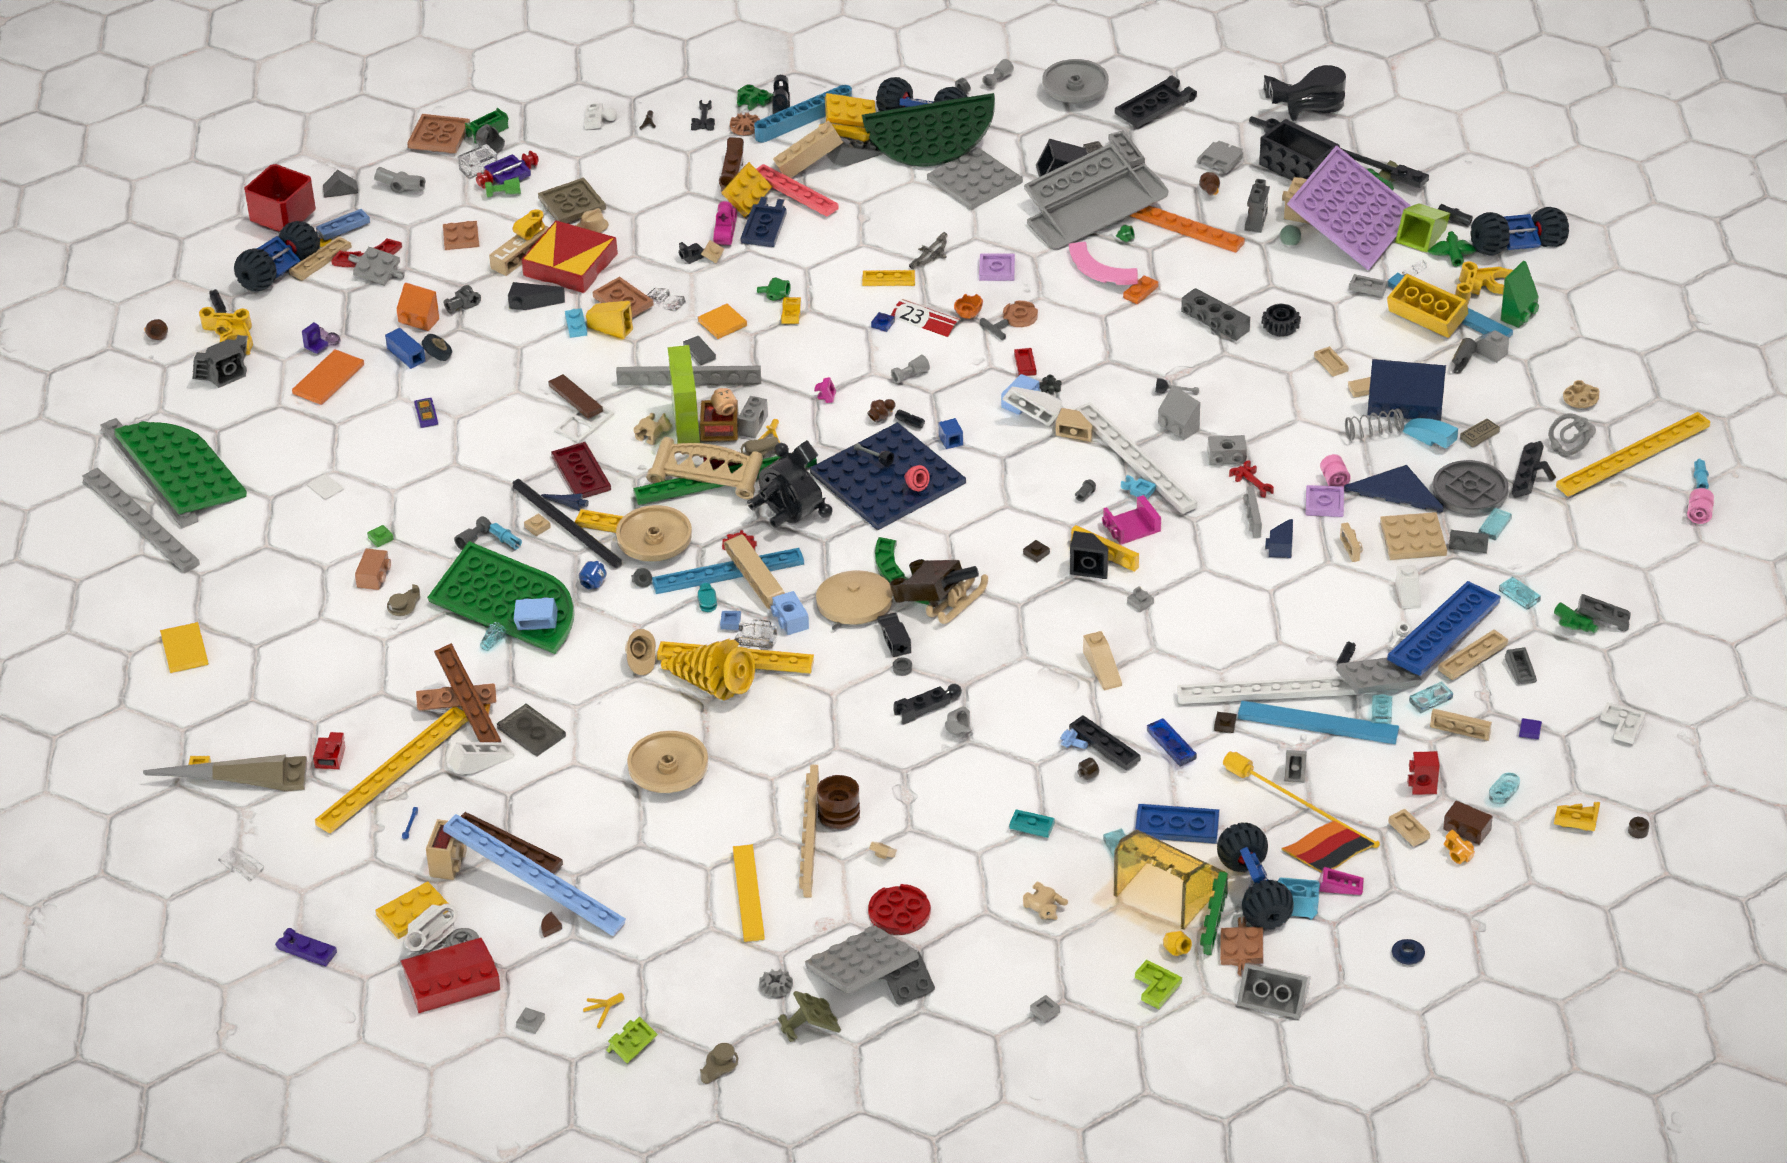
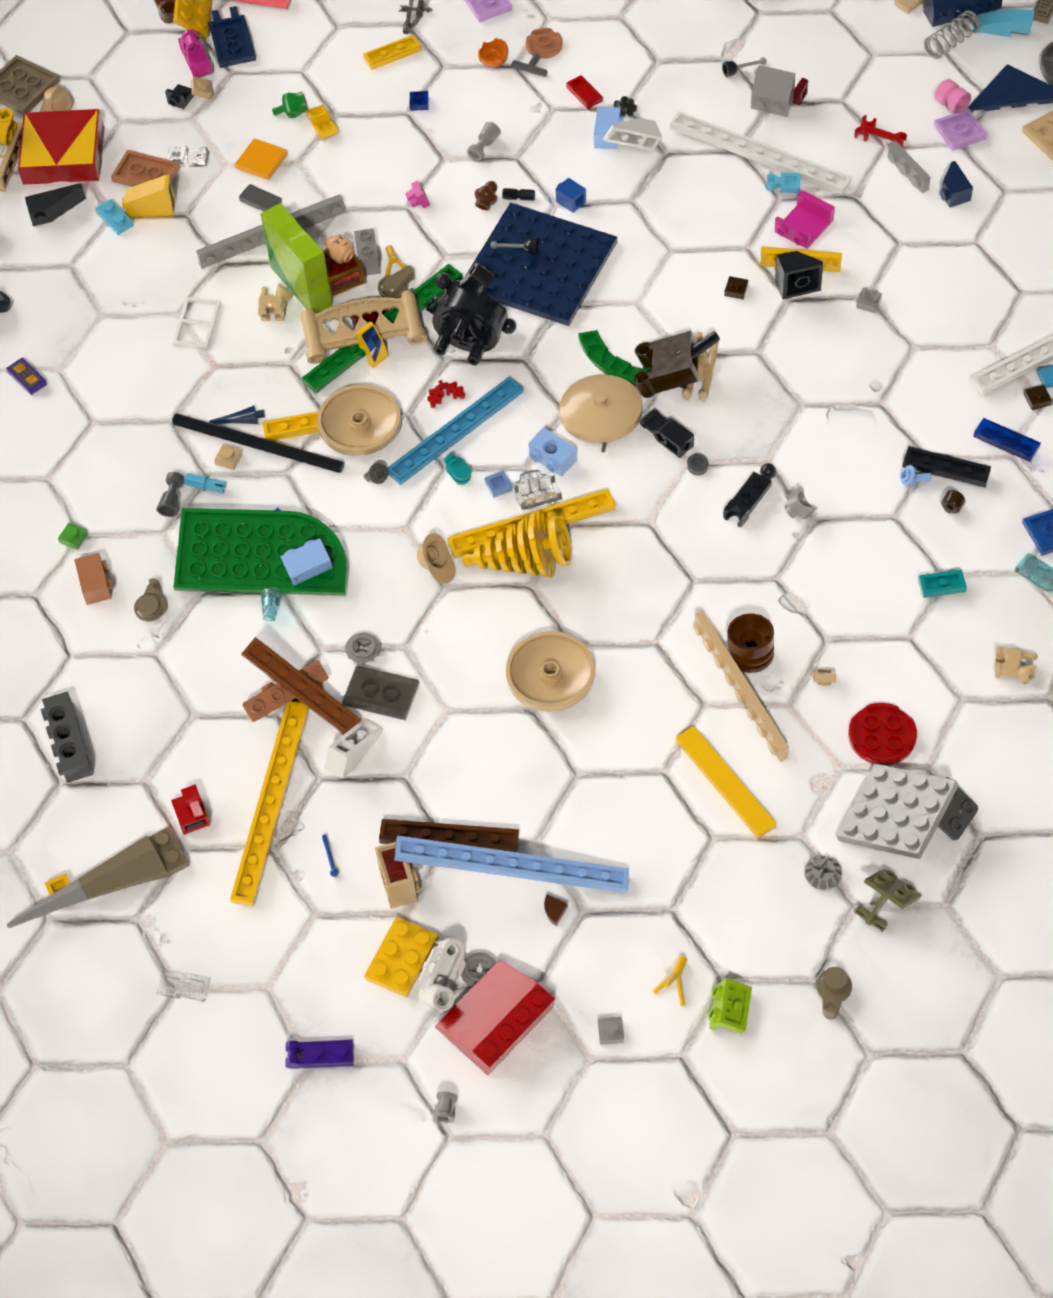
camera: 25 degrees left, 15 degrees up
(275, 668) = (71, 767): none -> dark grey brick
(369, 1017) = (445, 1107): none -> light grey bush
(532, 691) = (364, 640): none -> light grey gear
(575, 396) = (170, 298): reddish brown tile -> none
(581, 470) = (231, 378): dark red tile -> none
(592, 574) = (326, 491): blue head -> none
(703, 482) = (372, 344): none -> slope
(753, 569) = (488, 420): tan beam -> none
(917, 478) = (578, 256): coral brick -> none
(924, 317) = (456, 80): sticker -> none
(1073, 425) = (680, 141): tan slope -> none
(1088, 487) = (738, 201): dark grey pin -> none
(1101, 660) = (881, 379): tan slope -> none
(1206, 423) = (800, 91): none -> dark red tile
(1227, 450) = (838, 112): light grey brick -> none
(1350, 542) = (1016, 163): tan piece -> none

